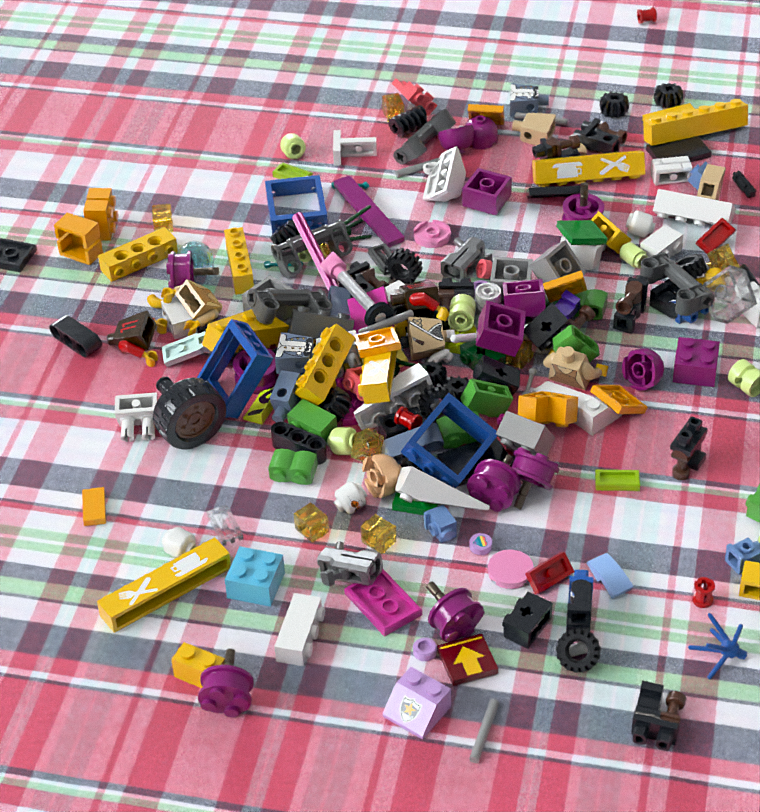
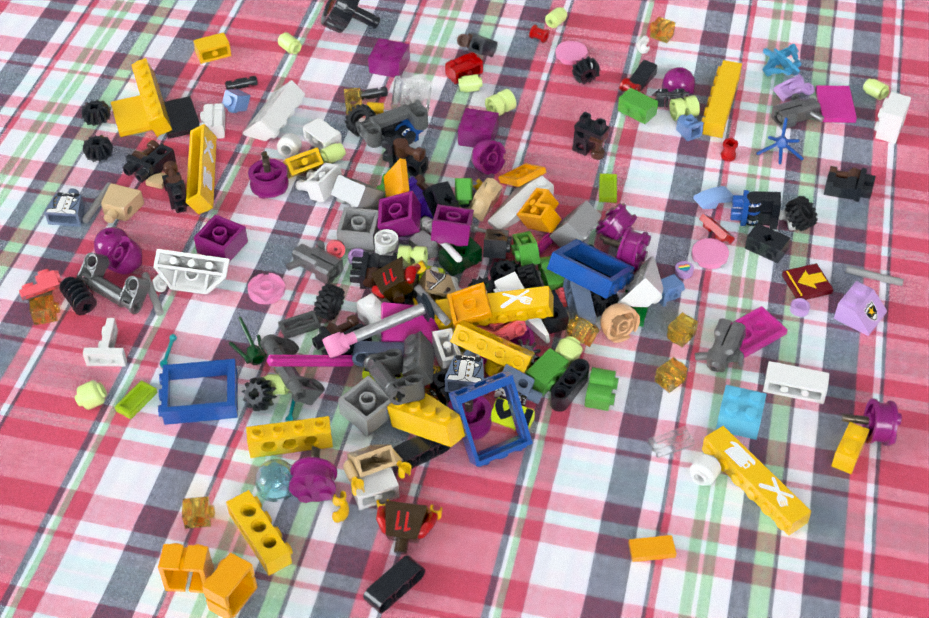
camera: 90 degrees left, 5 degrees up
(136, 410) = (527, 512): white brick -> none
(184, 349) = (432, 474): light aqua hinge -> none
(188, 412) = (547, 456): black wheel -> none
(350, 497) = (640, 347): white head -> none
(374, 216) = (219, 334): magenta tile -> none
(407, 418) = (561, 294): red bush -> none
(454, 613) = (777, 277): magenta wheel -> none
(493, 112) = (92, 233): light orange tile -> none
(562, 191) = (233, 192): black tile -> none
(582, 232) = (314, 171): green tile -> none
(711, 182) = (258, 91): tan slope -> none
(715, 236) = (317, 103): red tile -> none

